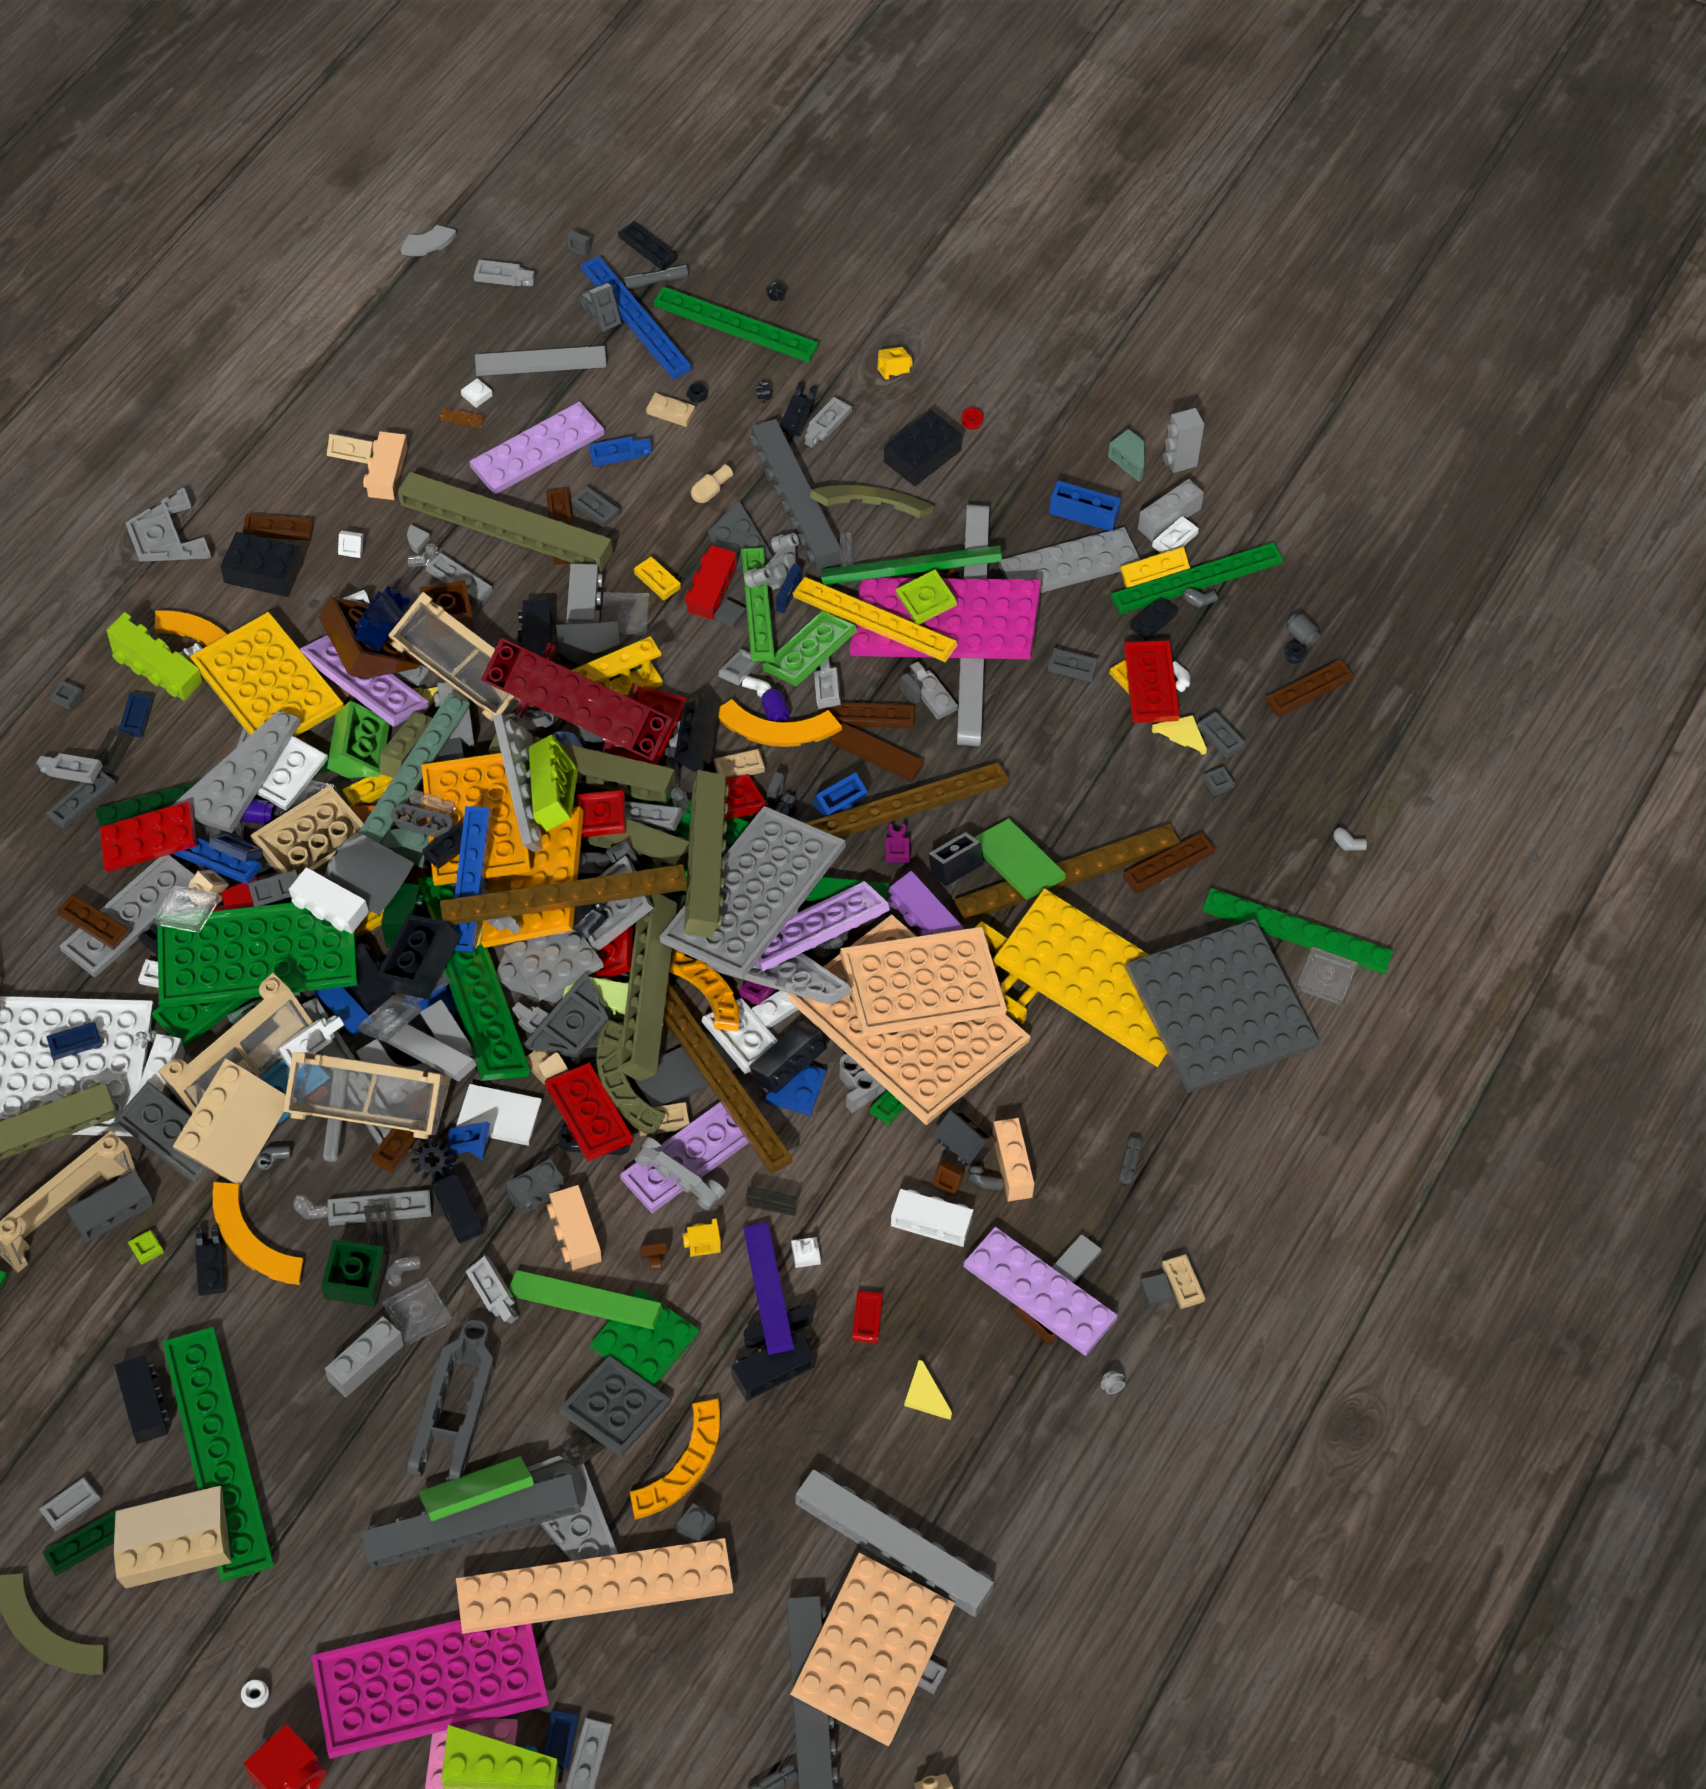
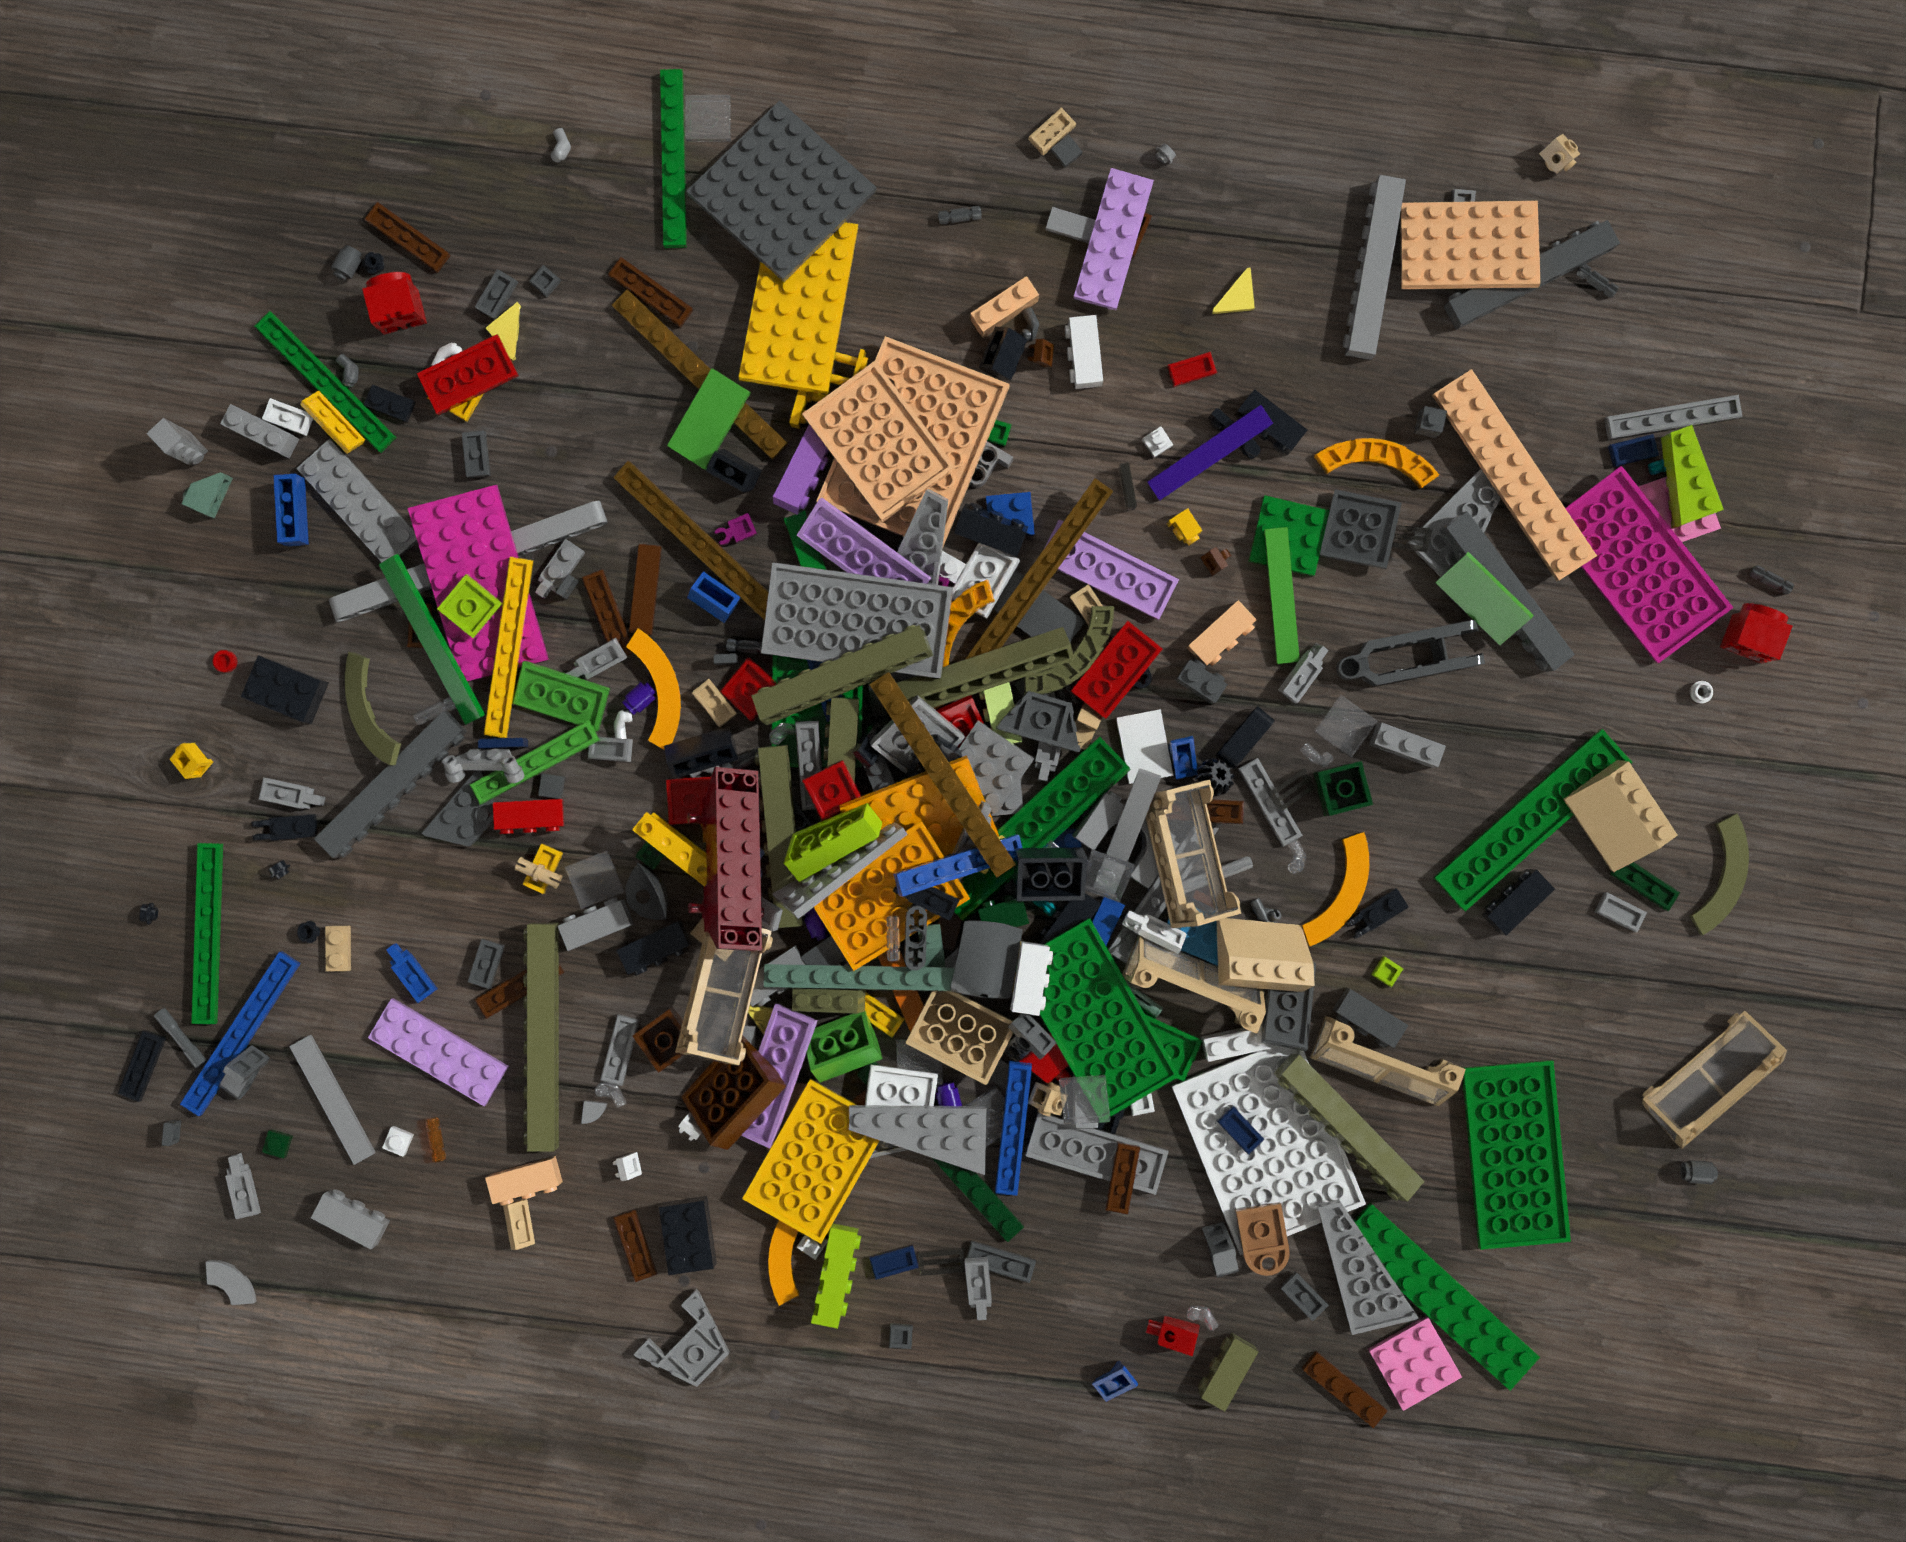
camera: 110 degrees left, 30 degrees up
(143, 1037) = (1209, 1069): clear arm -> none
(148, 836) = (1019, 1177): red plate -> none
(235, 847) = (1003, 1092): dark blue tile -> none
(381, 618) = (711, 1087): clear blue brick -> none
(429, 335) = (350, 1218): none -> light grey brick
(525, 311) = (277, 1143): none -> dark green plate
(654, 568) = (538, 872): none -> tan pin
(686, 1180) = (1144, 579): light grey plate -> none
(709, 485) = (414, 869): tan arm -> none
(1245, 647) = (393, 302): none -> red piece

